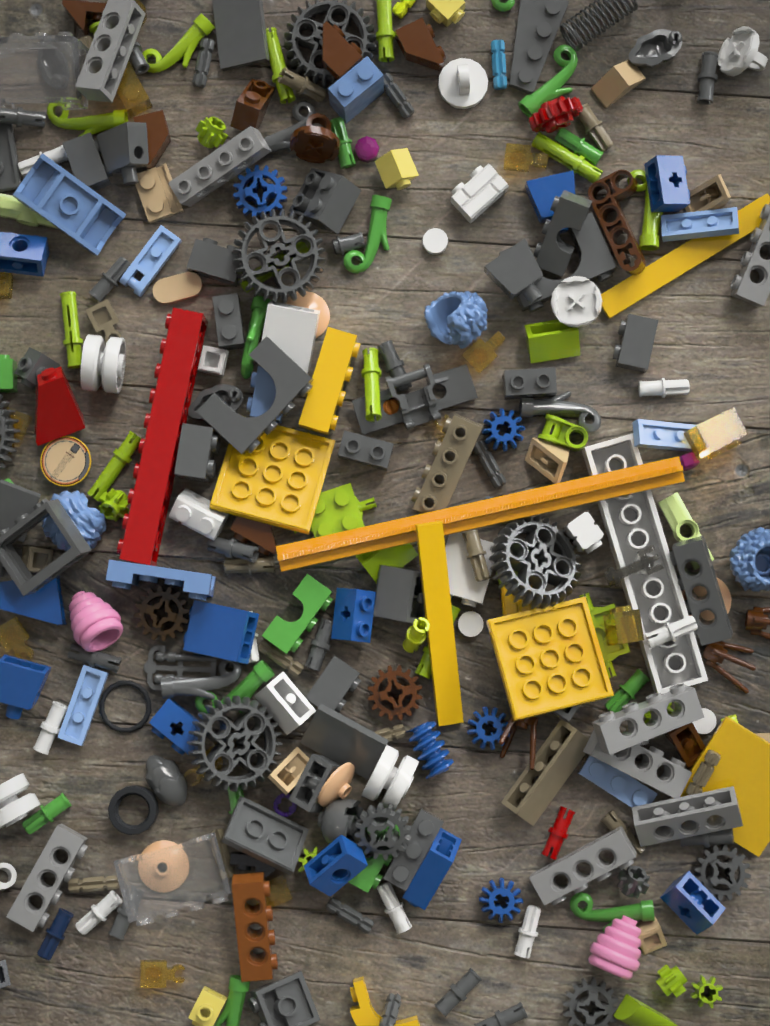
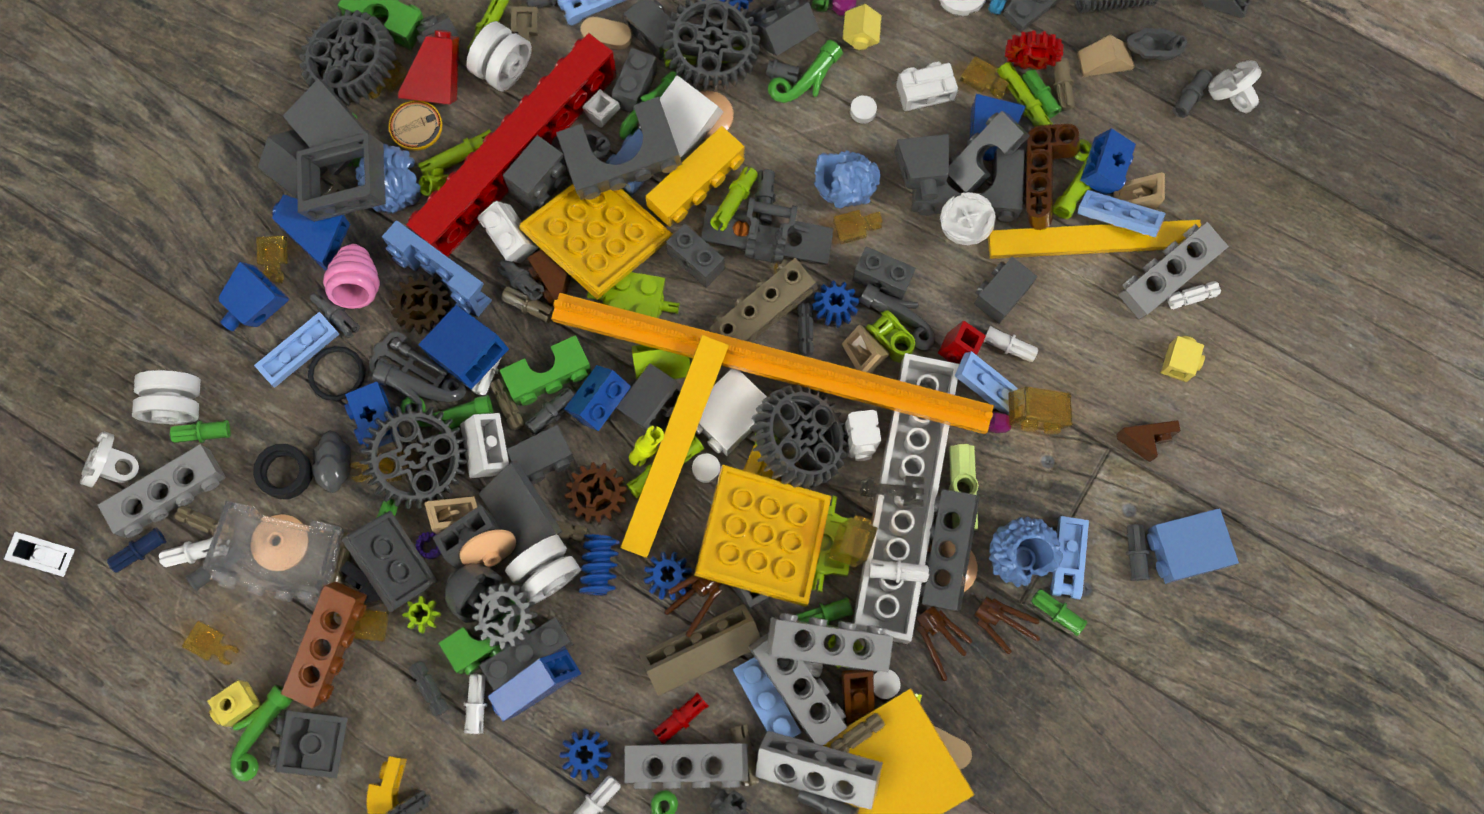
camera: 20 degrees right, 10 degrees down
(50, 727) = (253, 354): white pin -> none
(335, 865) = (438, 624): blue brick -> none
(476, 555) = (746, 399): dark tan axle -> none
(551, 341) = (925, 248): lime brick -> none
(552, 88) = (1052, 28): bright green plant -> none
(623, 411) = (961, 340): none -> red brick

